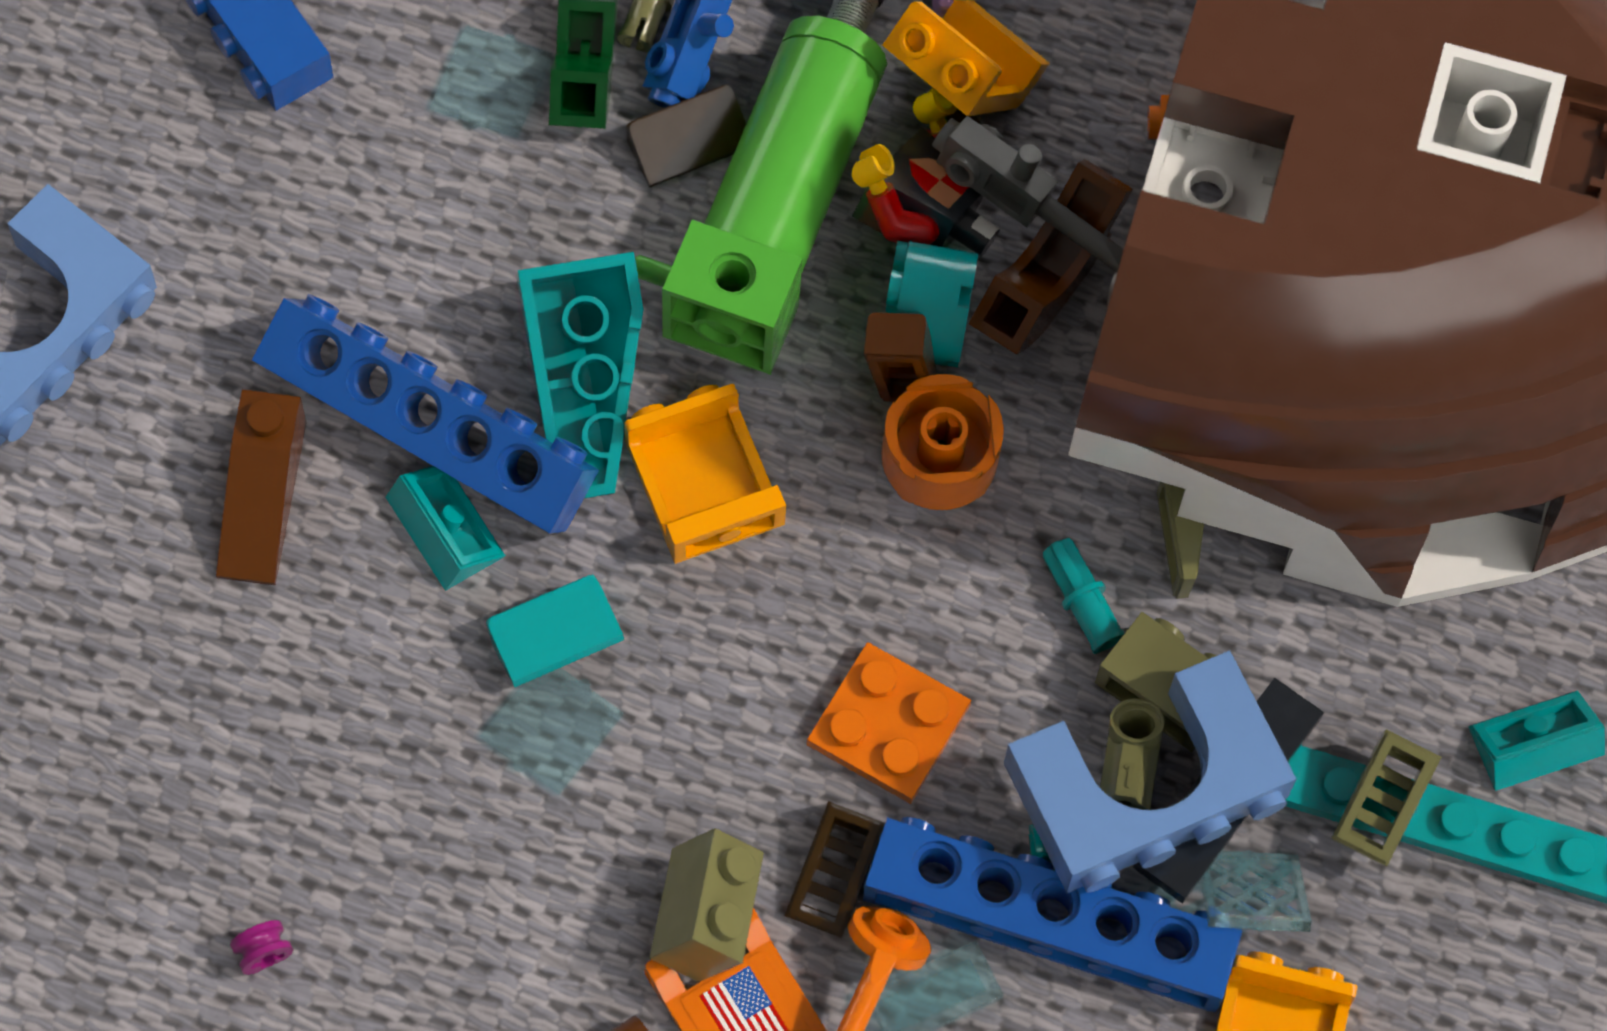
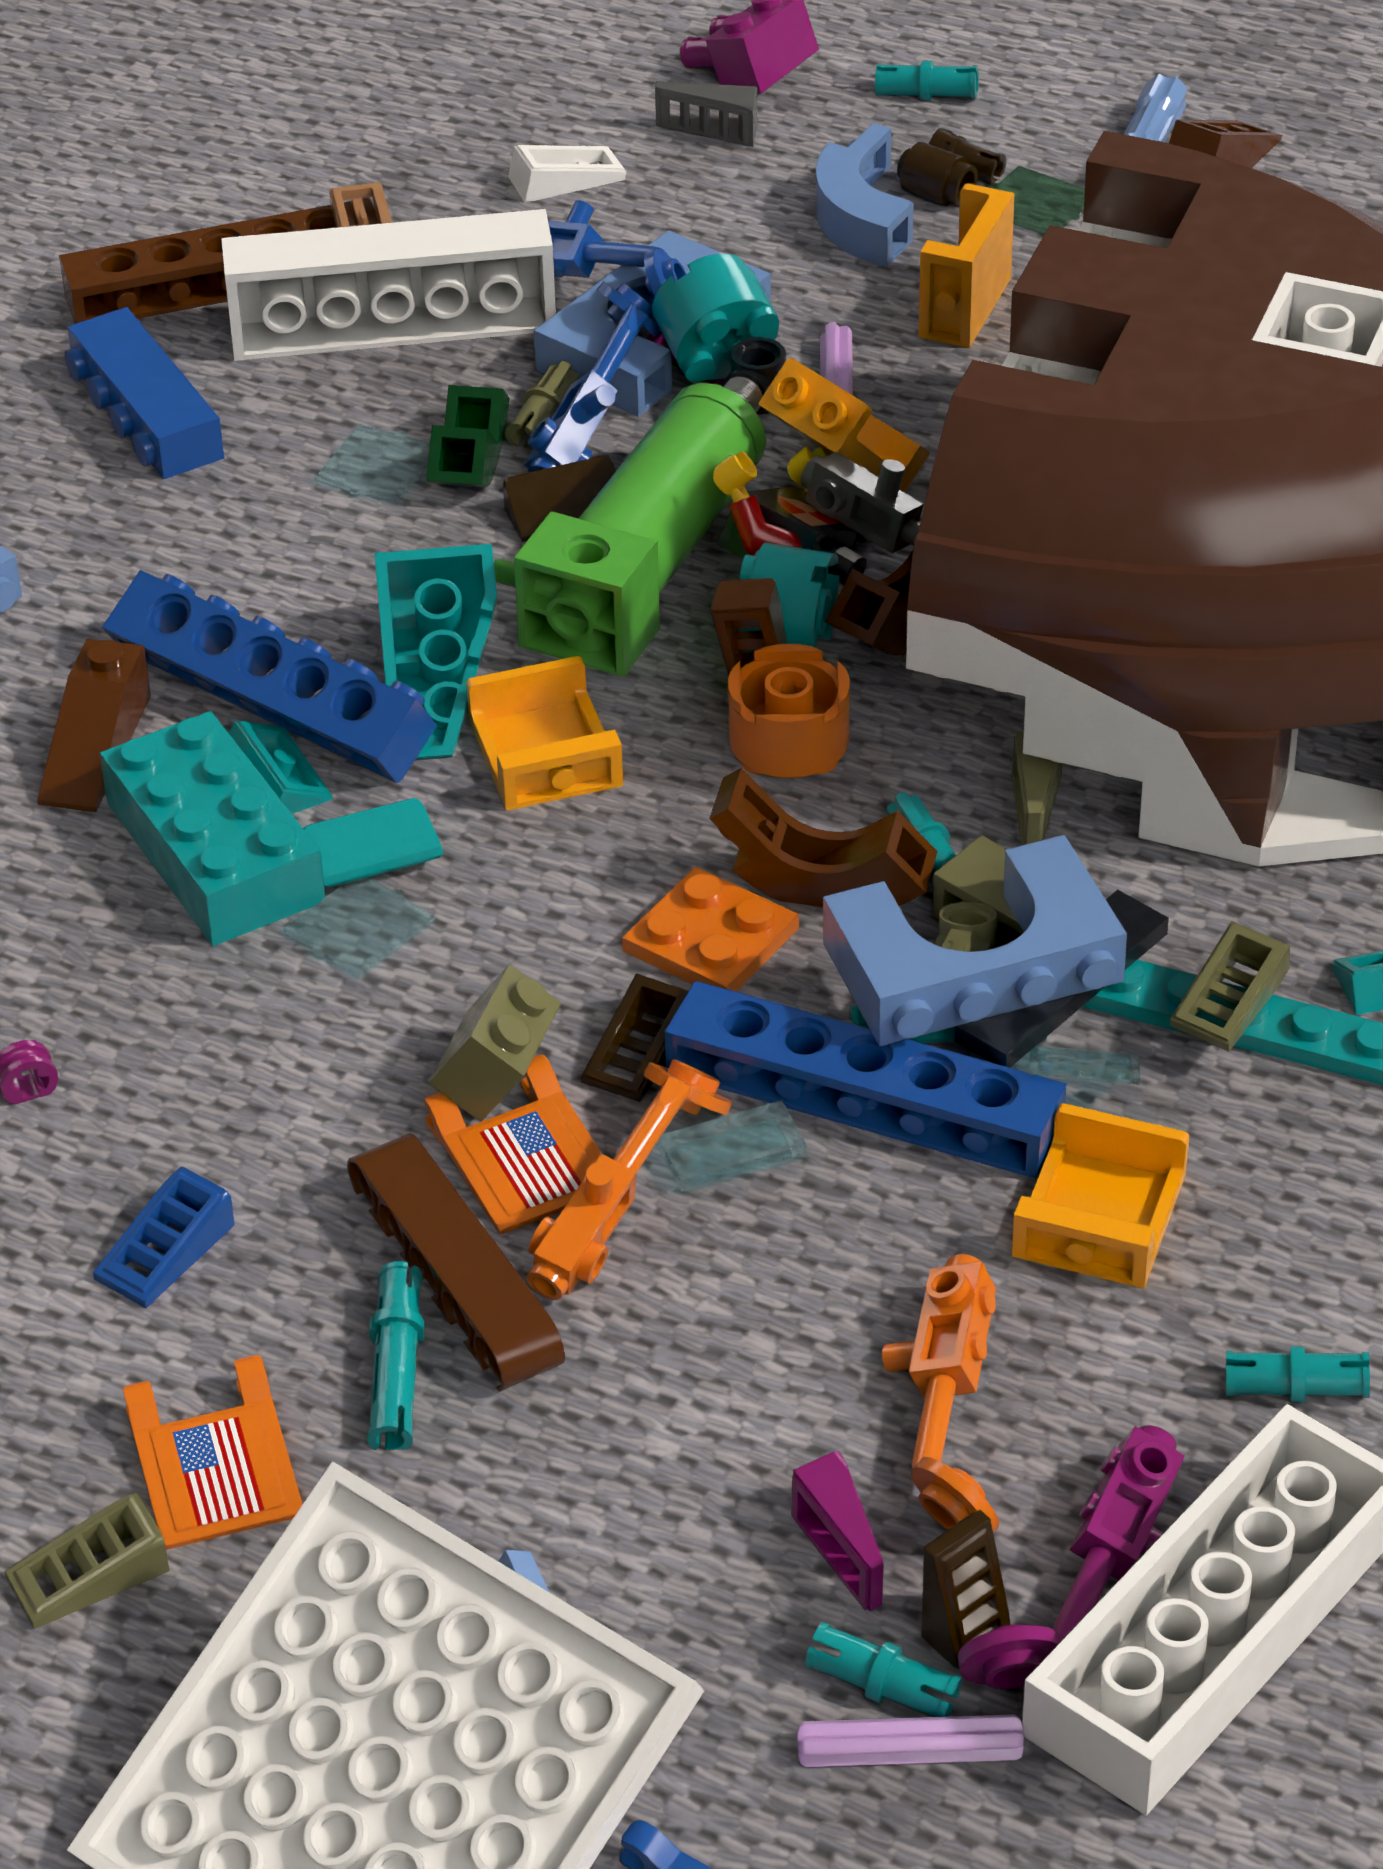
camera: 10 degrees right, 25 degrees down
(397, 622) = (213, 828): none -> teal brick
(985, 640) = (808, 863): none -> reddish brown arch

